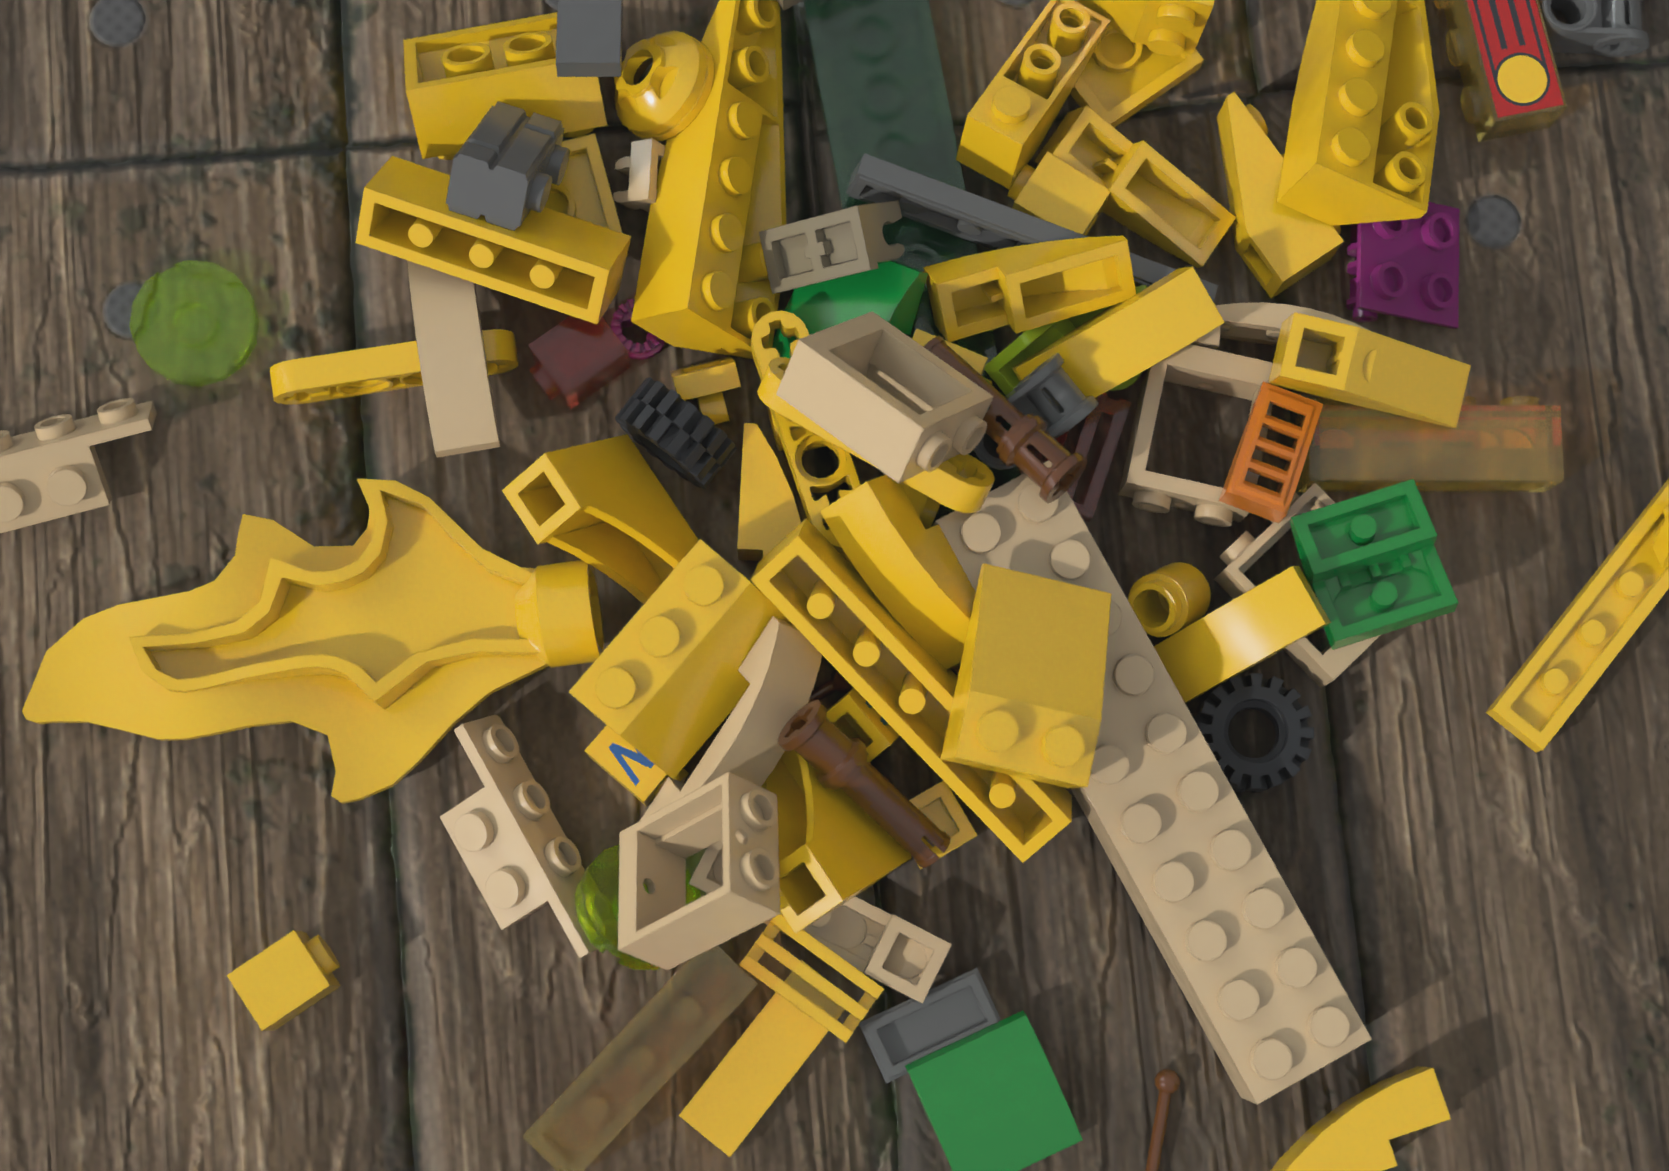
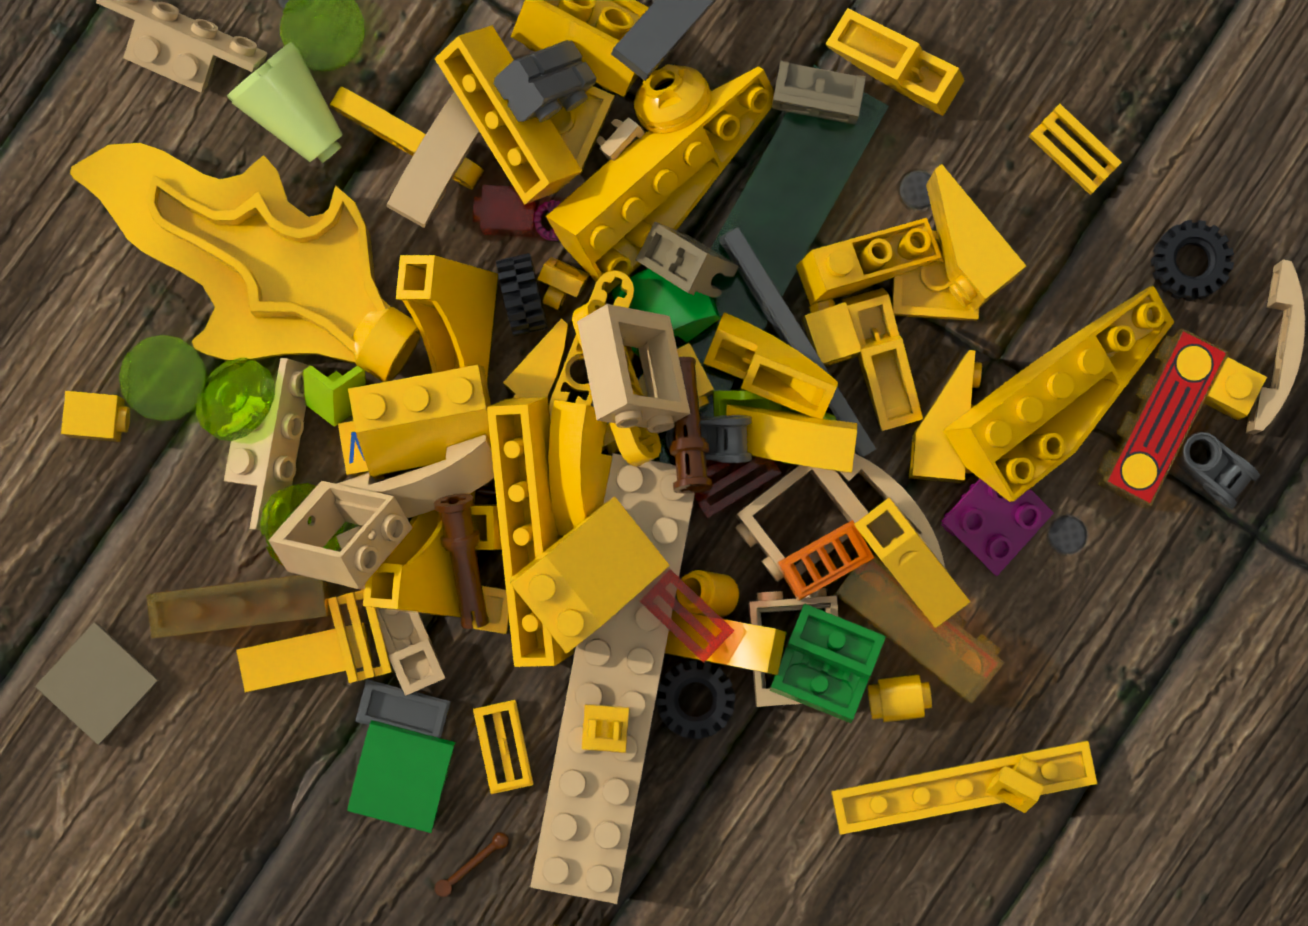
camera: 45 degrees right, 5 degrees up
(226, 433) = (289, 105): none -> yellowish green cone
(331, 870) = (162, 378): none -> clear neon green tile
(439, 821) = (235, 399): none -> clear neon green tile
(550, 724) = (330, 394): none -> lime panel
(1122, 632) = (659, 589): none -> clear red tile
(1123, 1005) = (510, 783): none -> yellow tile
(1193, 842) = (605, 728): none -> yellow tile
(1477, 543) = (899, 698): none -> yellow brick

